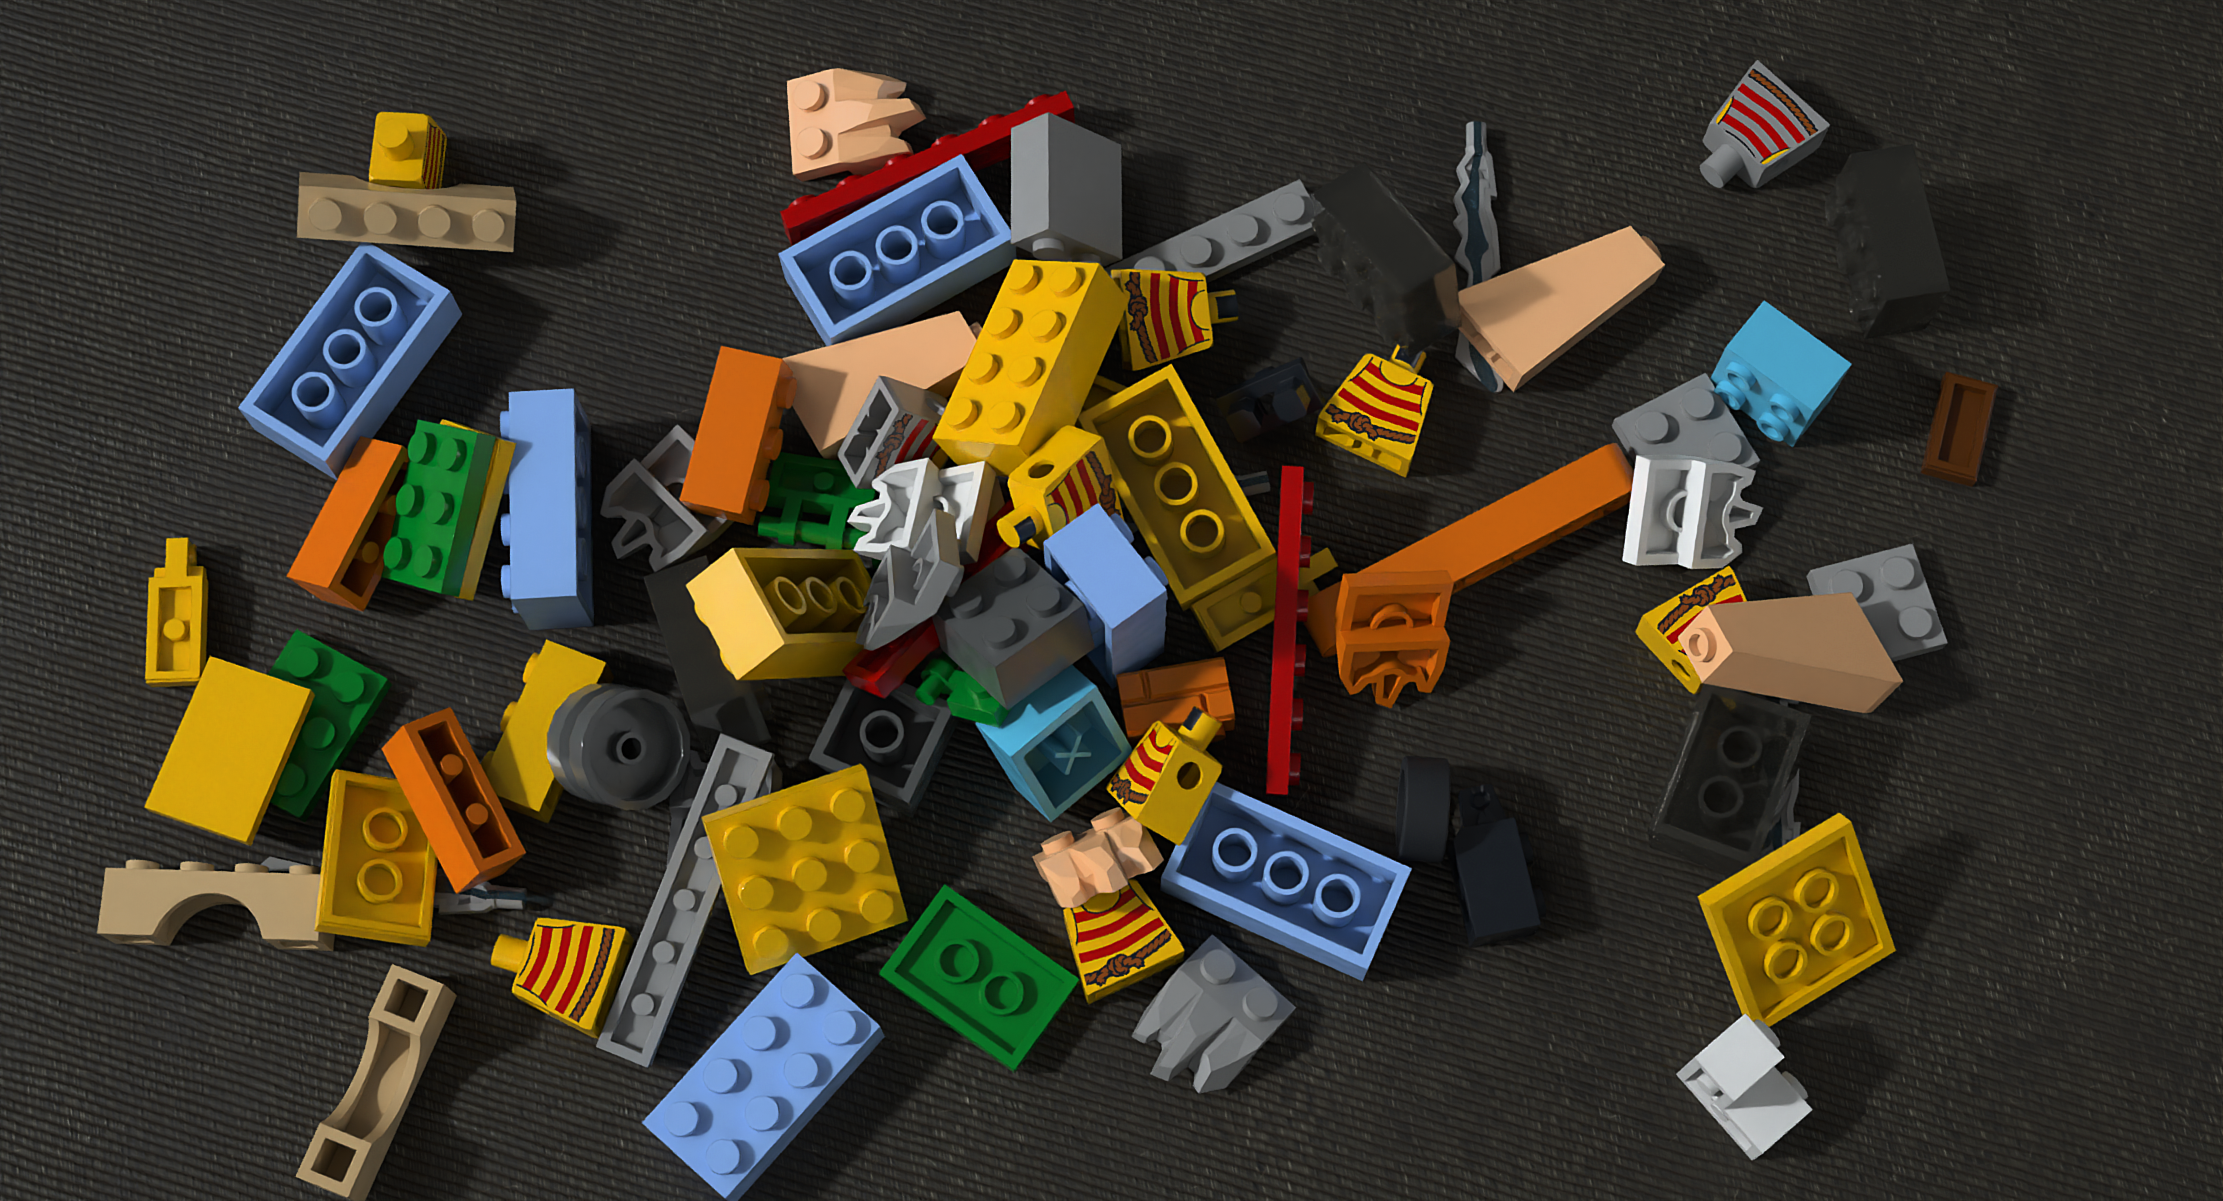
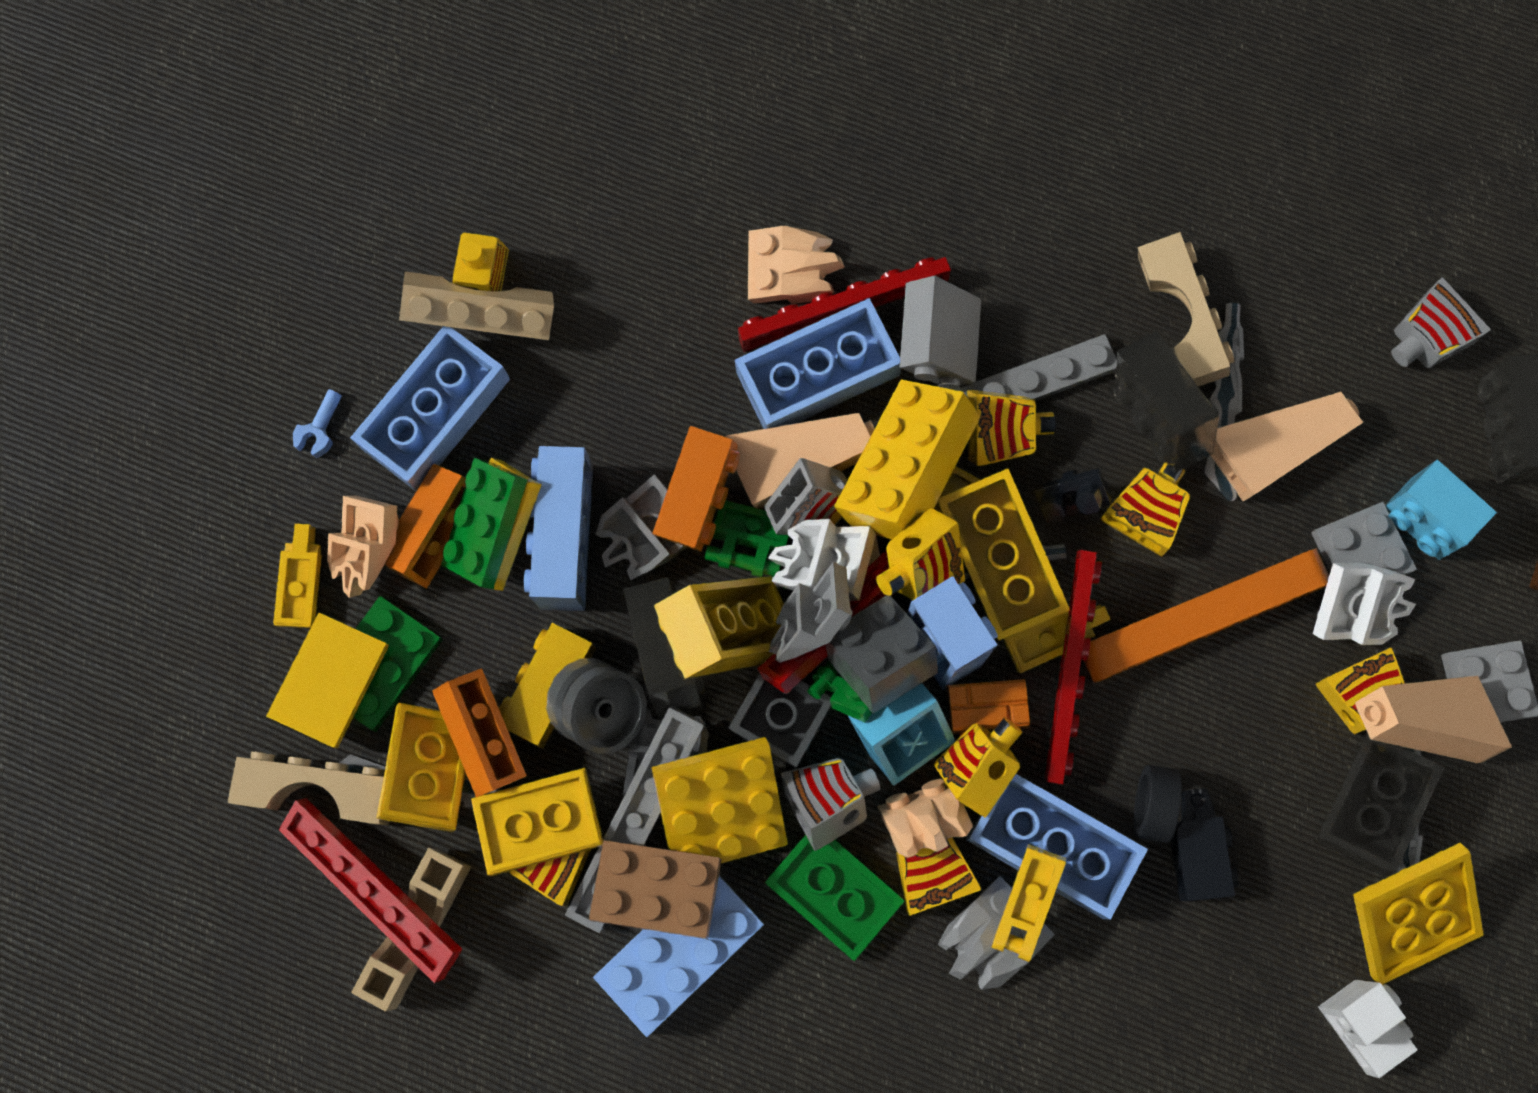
camera: 10 degrees right, 5 degrees up
(190, 404) = (318, 427): none -> light blue bar
(268, 557) = (363, 544): none -> light nougat plate
(313, 1034) = (370, 890): none -> red plate
(546, 915) = (537, 822): none -> yellow tile
(721, 989) = (655, 889): none -> medium nougat plate
(959, 847) = (828, 799): none -> light grey torso
(1250, 954) = (1029, 901): none -> yellow plate
(1382, 86) = (1170, 270): none -> tan arch
(1392, 631) = (1147, 673): orange plate -> none

